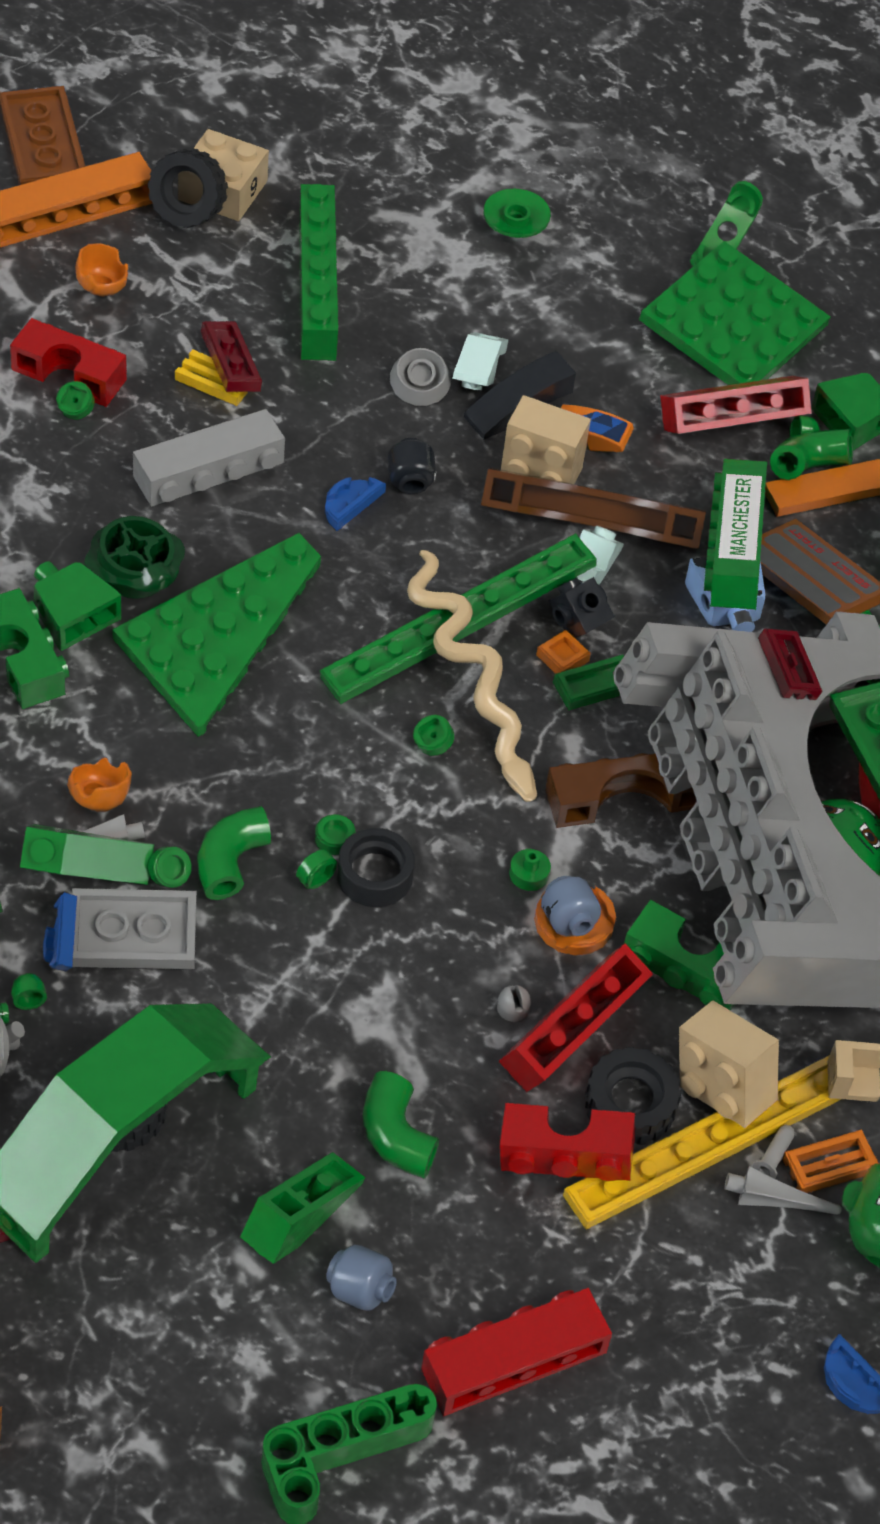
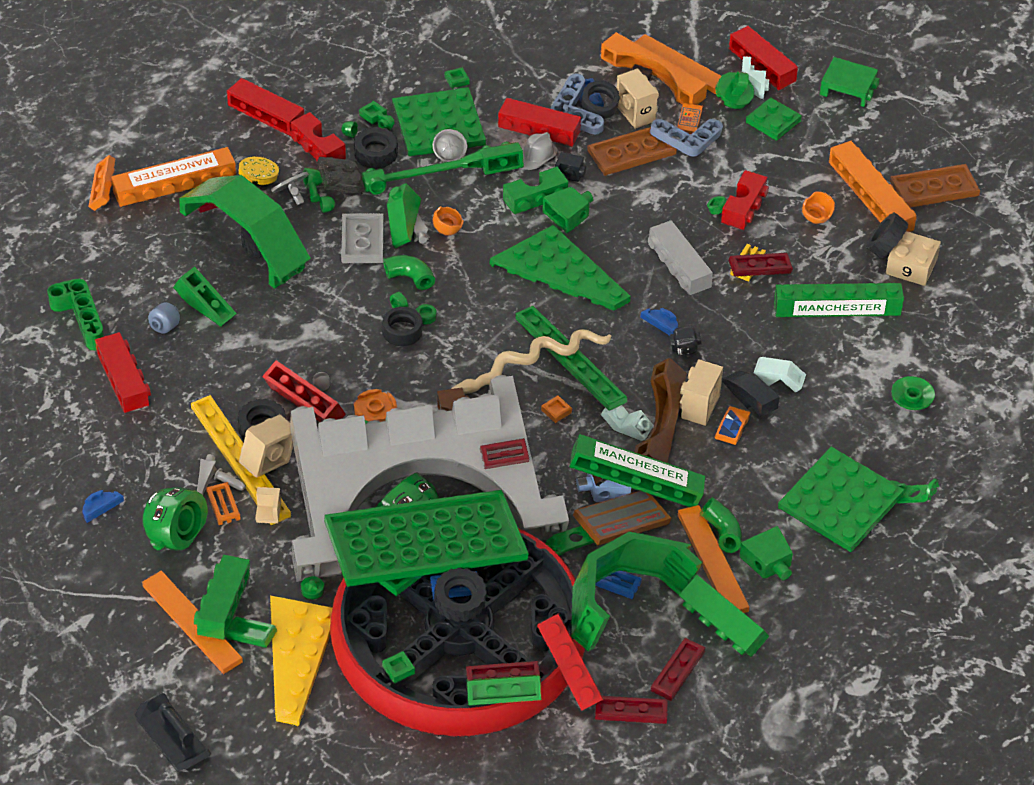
camera: 95 degrees right, 5 degrees down
(59, 941) = (340, 209): blue tile -> none
(137, 547) = (599, 233): dark green piece -> none
(169, 866) = (399, 247): green tile -> none
(388, 1129) = (245, 328): green cylinder -> none
(420, 377) = (762, 345): light grey hat -> none
(433, 735) = (491, 350): green tile -> none
(530, 869) = (405, 390): green tile -> none
(571, 906) = (370, 392): sand blue head -> none
(581, 606) = (582, 407): black brick -> none
(588, 683) = (537, 422): green tile -> none
(598, 1152) = (229, 390): red arch -> none
(735, 404) = (756, 488): brick -> none
(803, 424) = (748, 527): green hinge -> none

